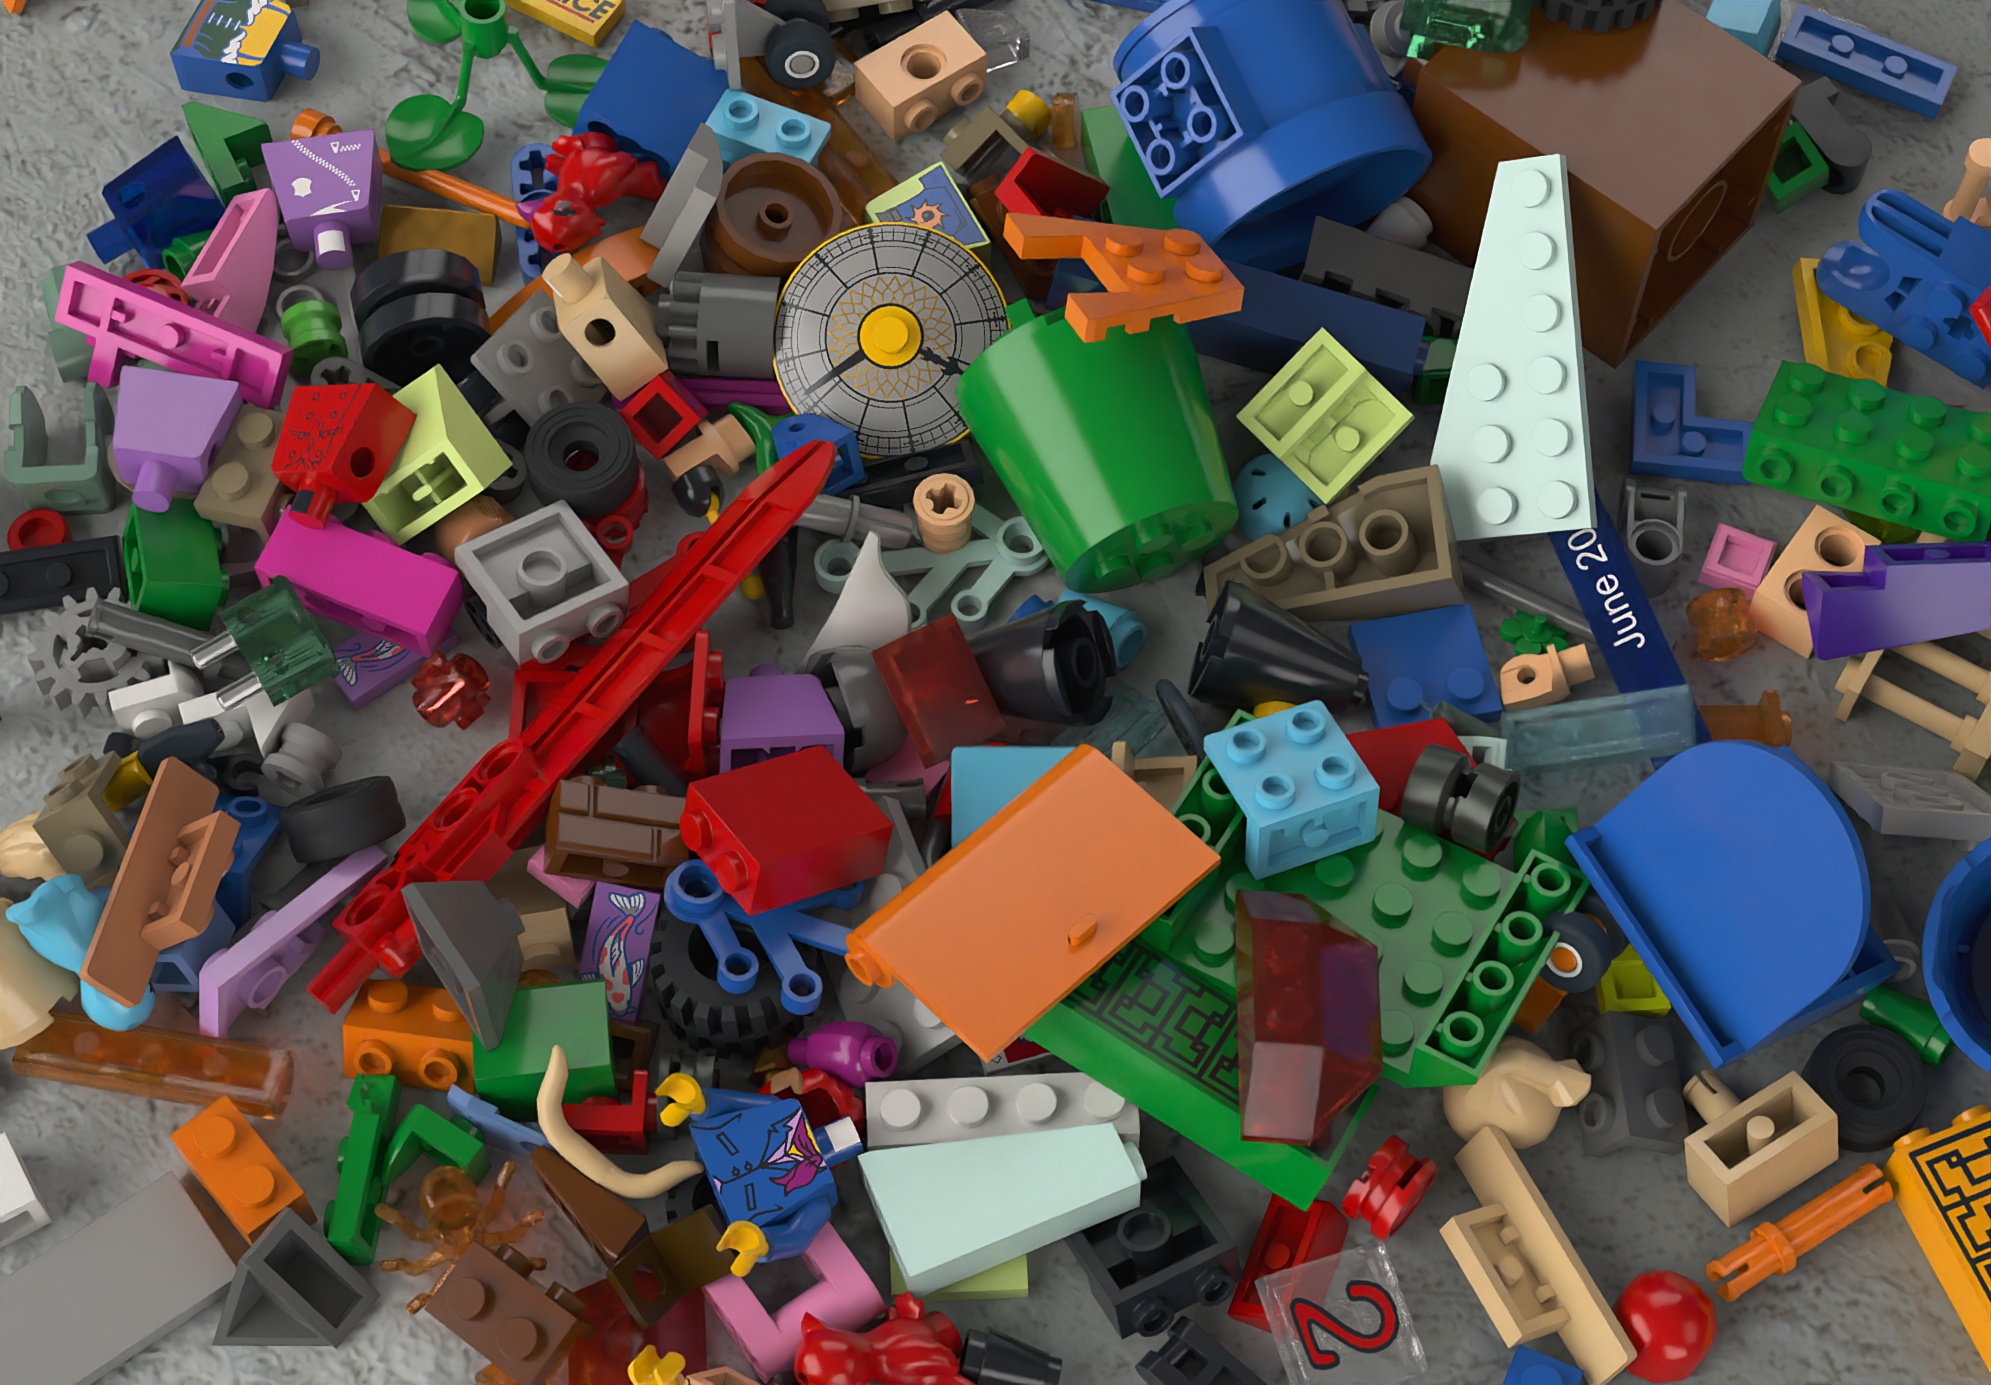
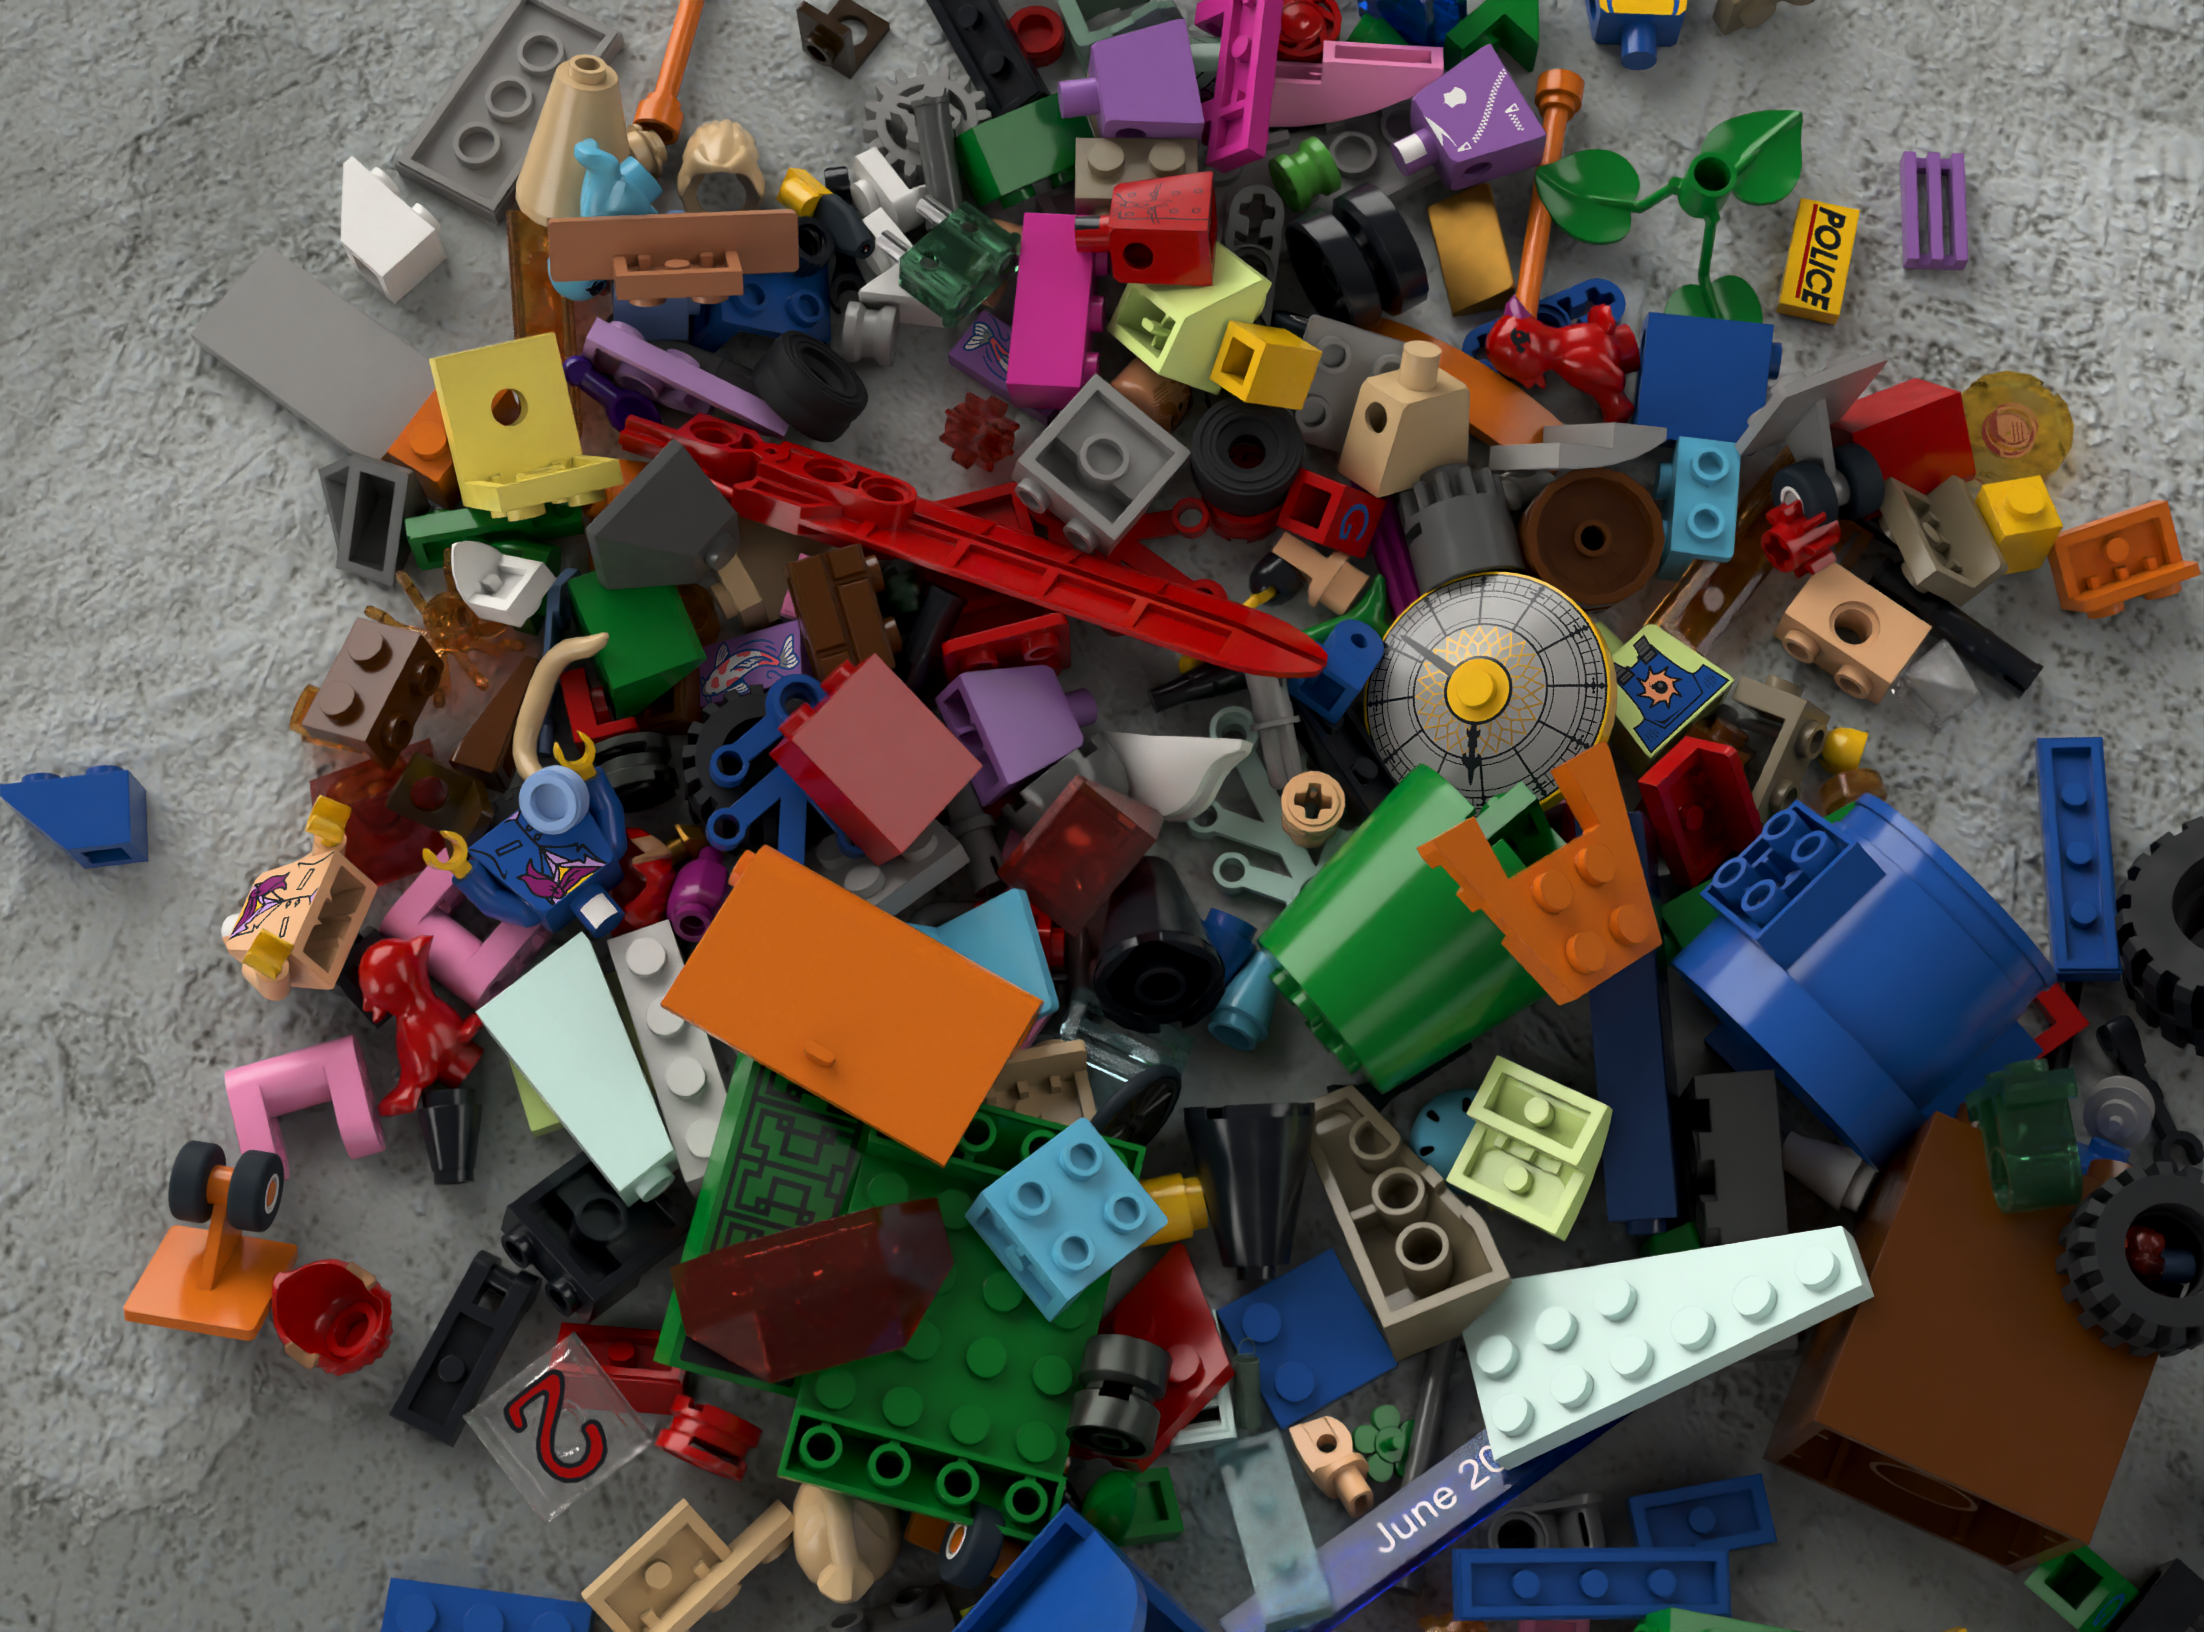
camera: 75 degrees right, 10 degrees up
(78, 821) = (718, 161): dark tan bracket -> none
(284, 1009) = (616, 401): none -> dark purple piece
(315, 1100) = (535, 457): none -> light yellow bracket
(453, 1146) = (499, 584): none -> white plate
(510, 403) = (1265, 365): none -> yellow brick
(723, 1129) = (554, 799): none -> light blue tile
(834, 75) = (1796, 541): none -> red gear
(1706, 501) = (1588, 1582): none -> blue tile

